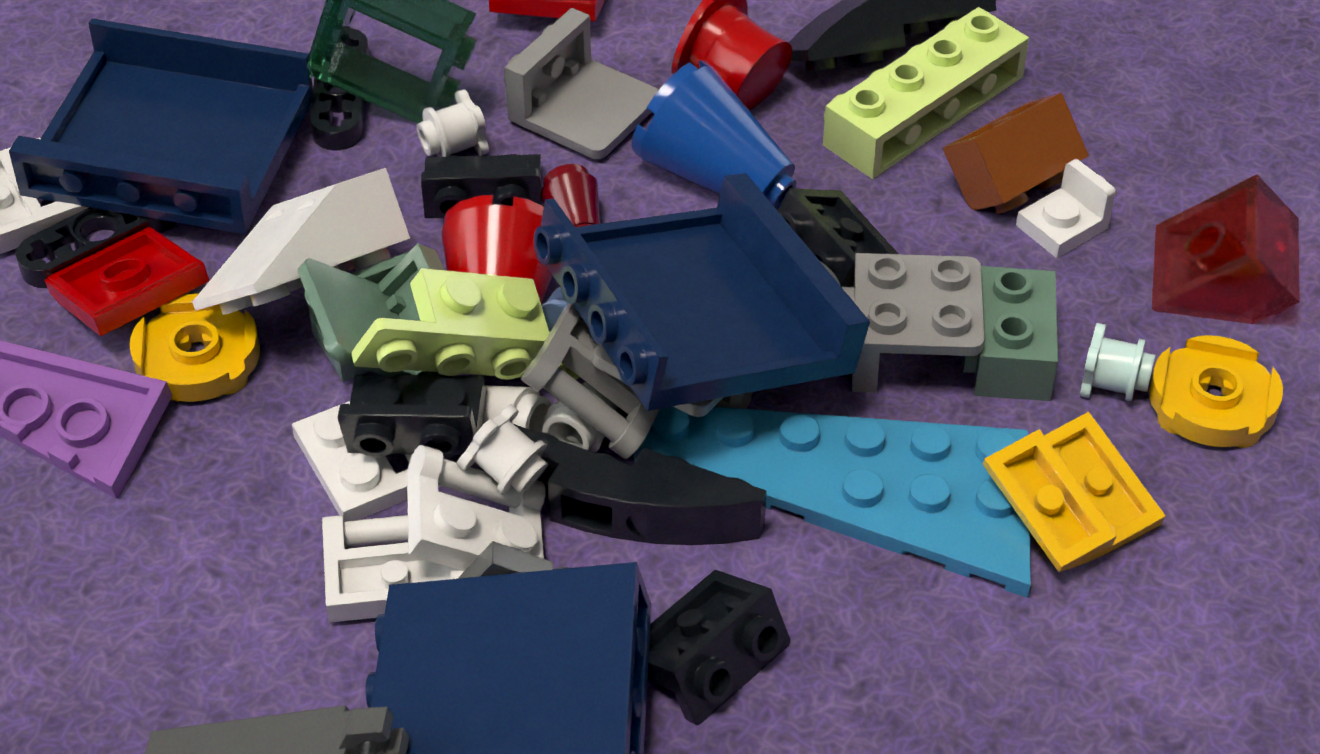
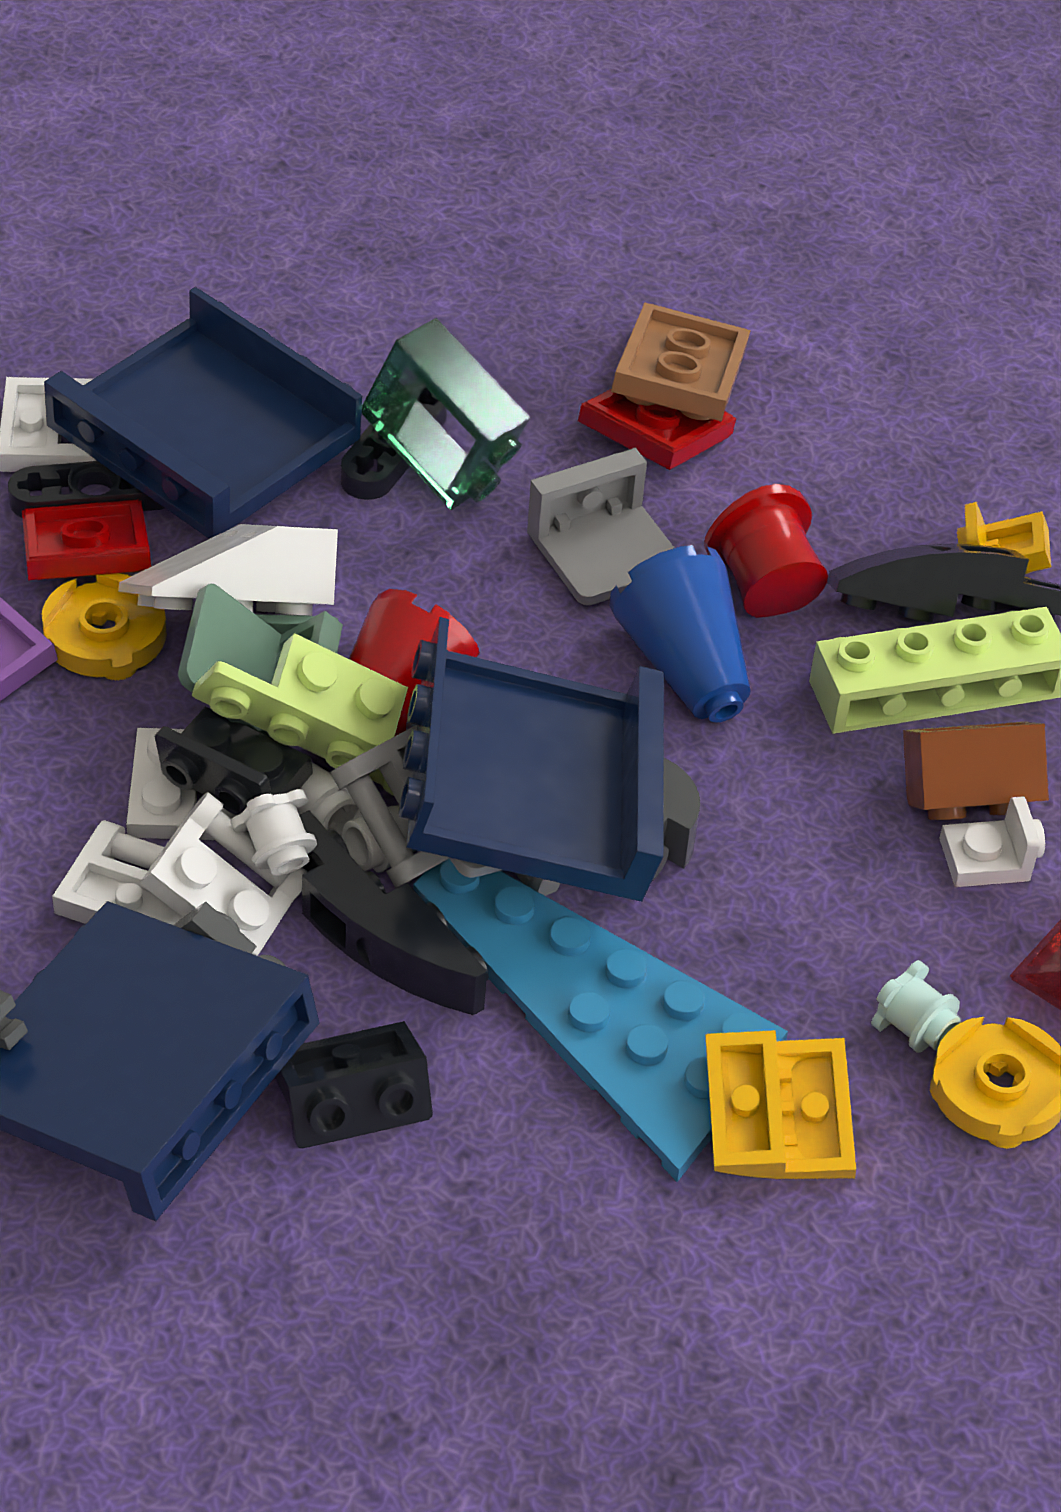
camera: 25 degrees right, 0 degrees up
(453, 128) = (461, 520): white brick -> none
(464, 177) = (465, 586): black bracket -> none
(574, 192) = (524, 631): dark red cone -> none
(832, 229) = (740, 774): black bracket -> none
(916, 308) = (747, 869): light grey bracket -> none
(1019, 335) = (840, 935): sand green brick -> none

